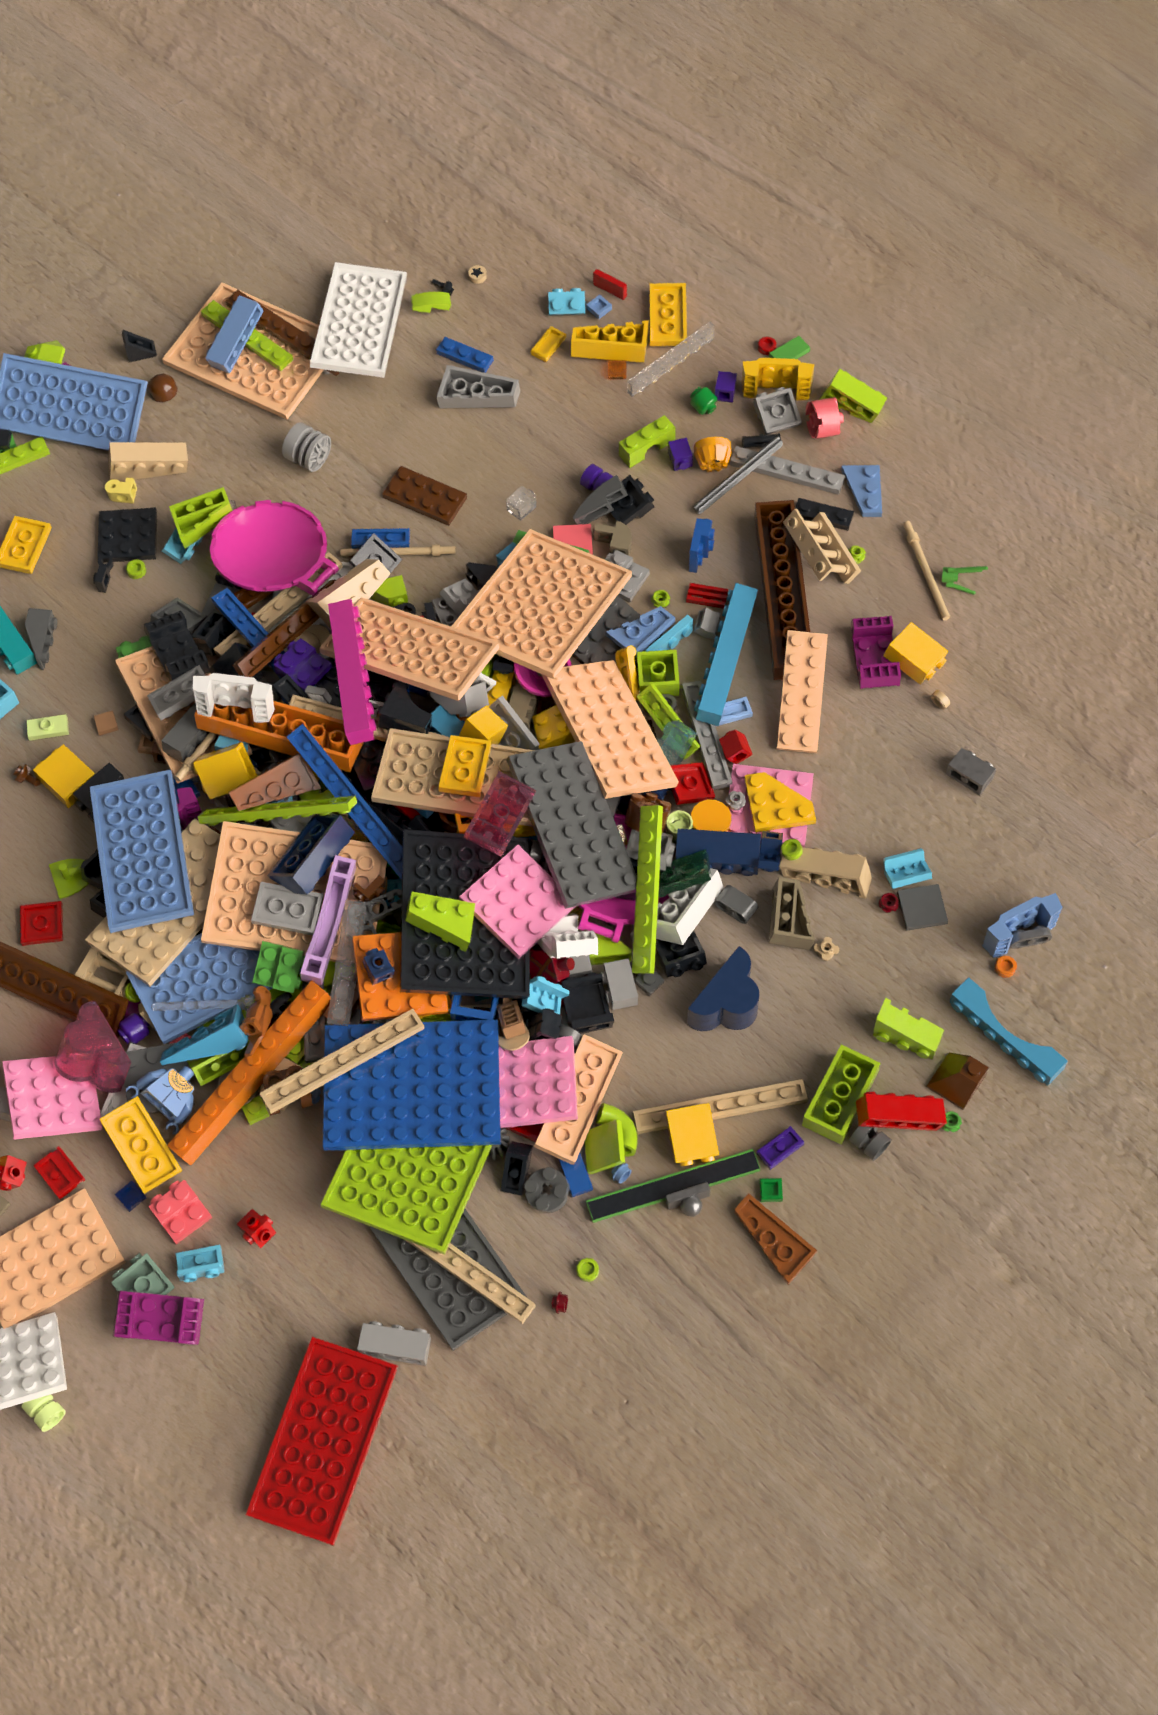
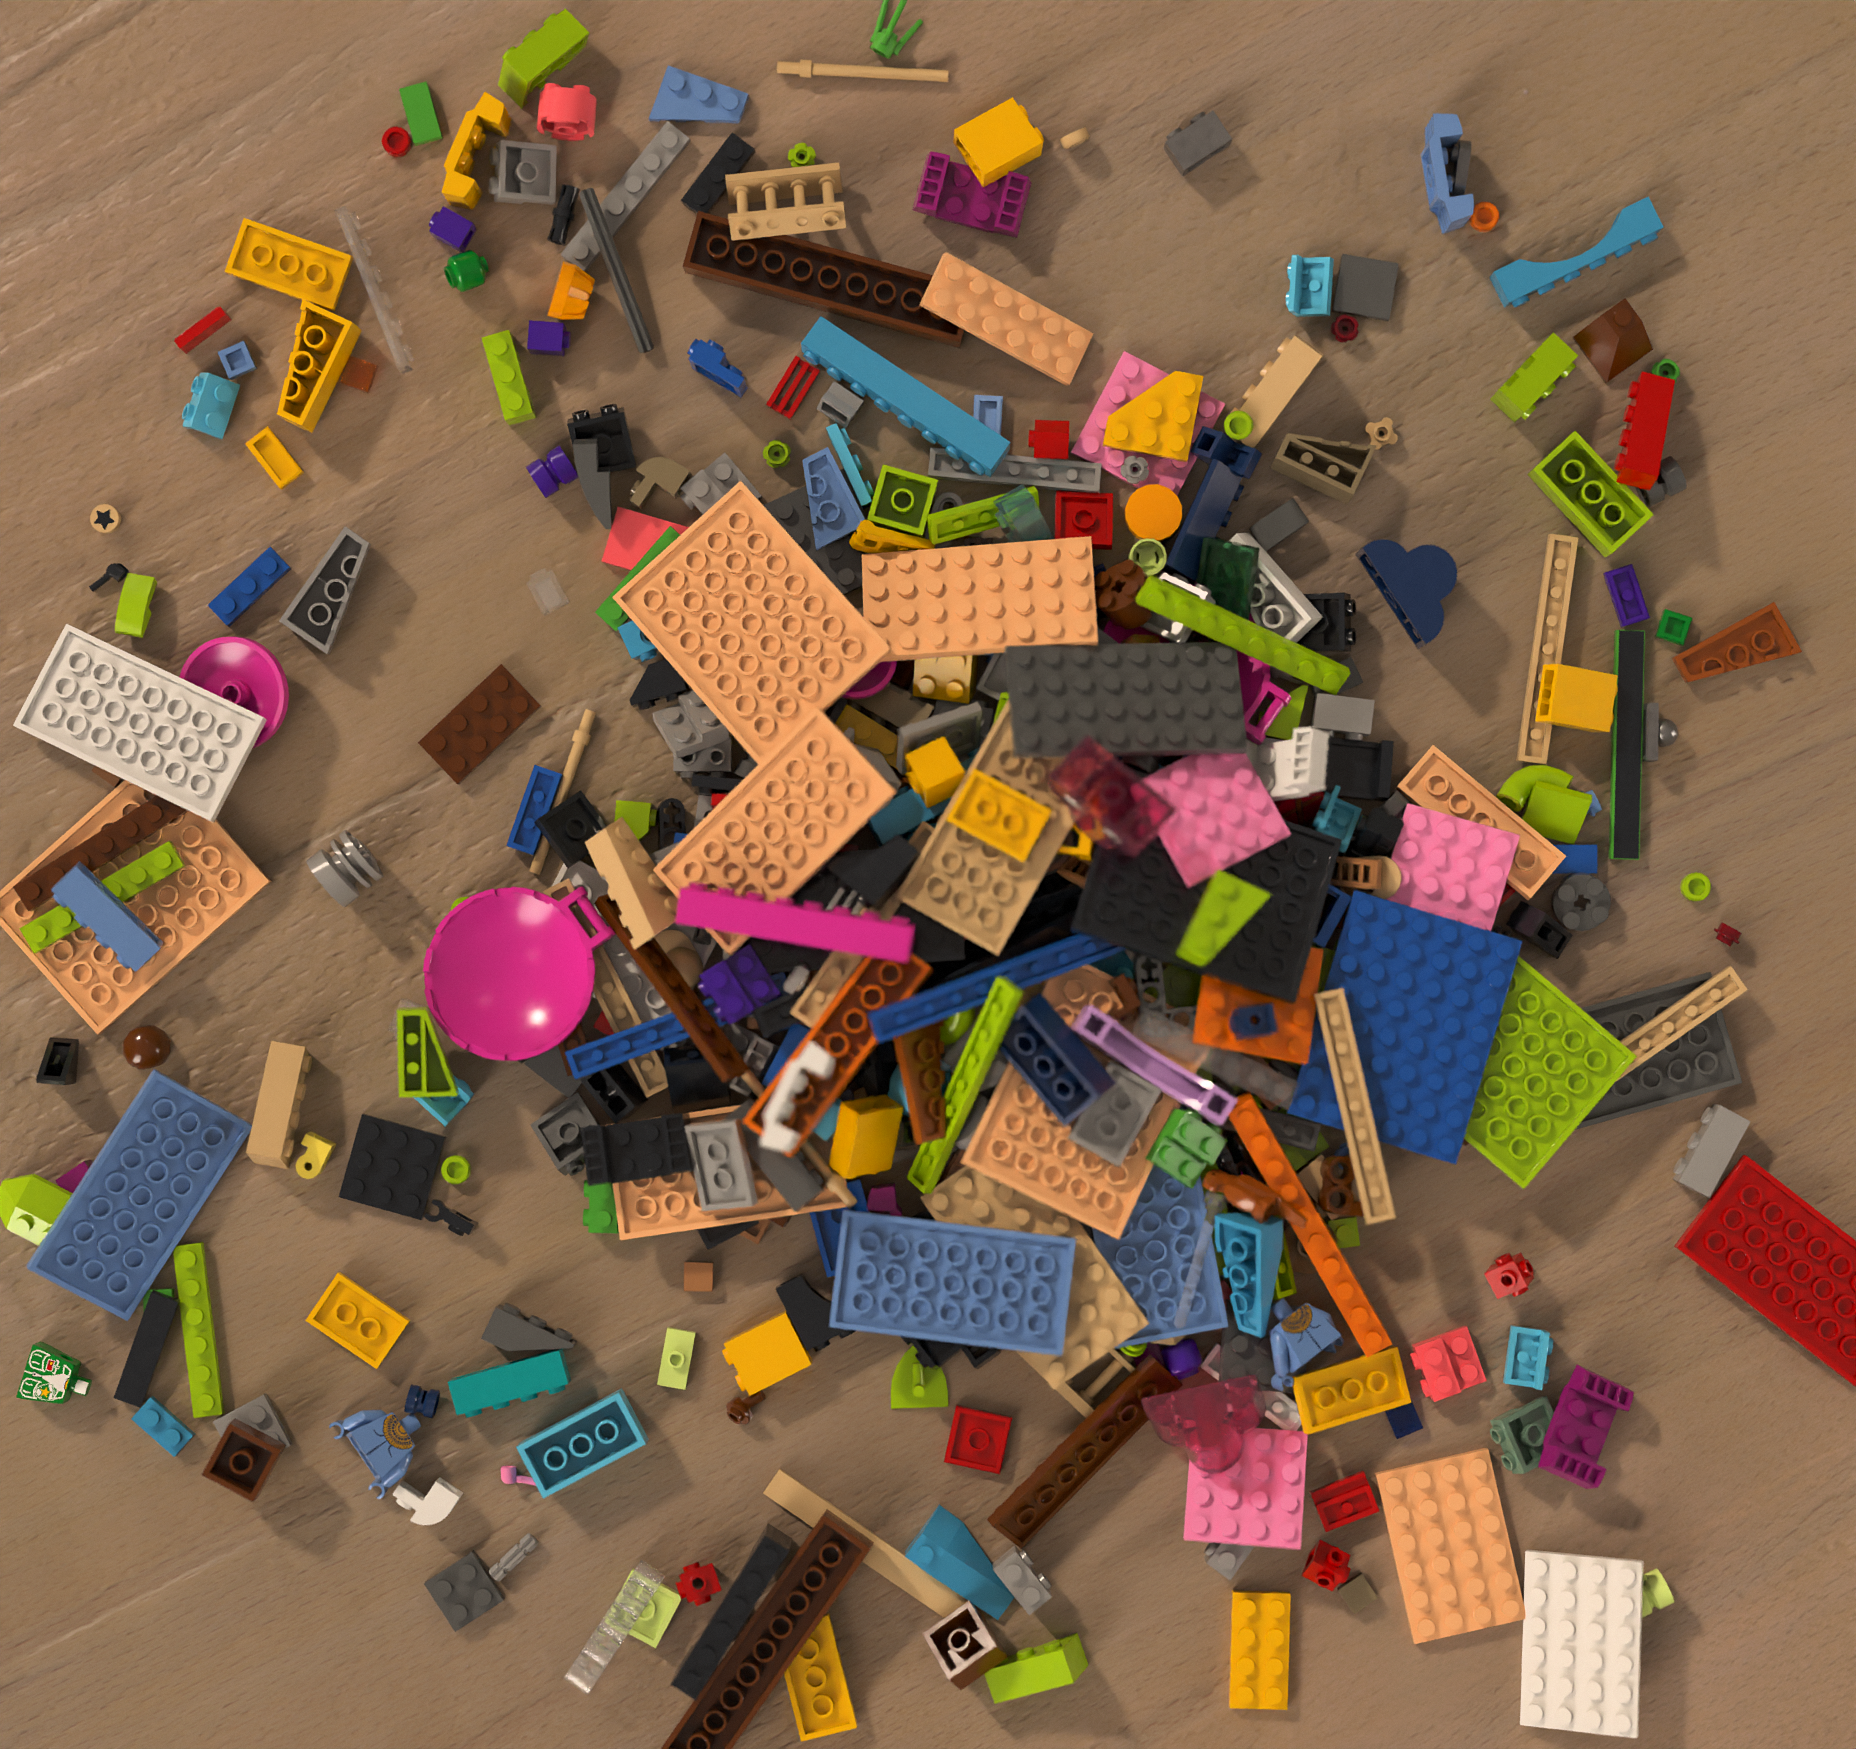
camera: 70 degrees left, 25 degrees up
(406, 362) = (243, 675): none -> dark pink dish

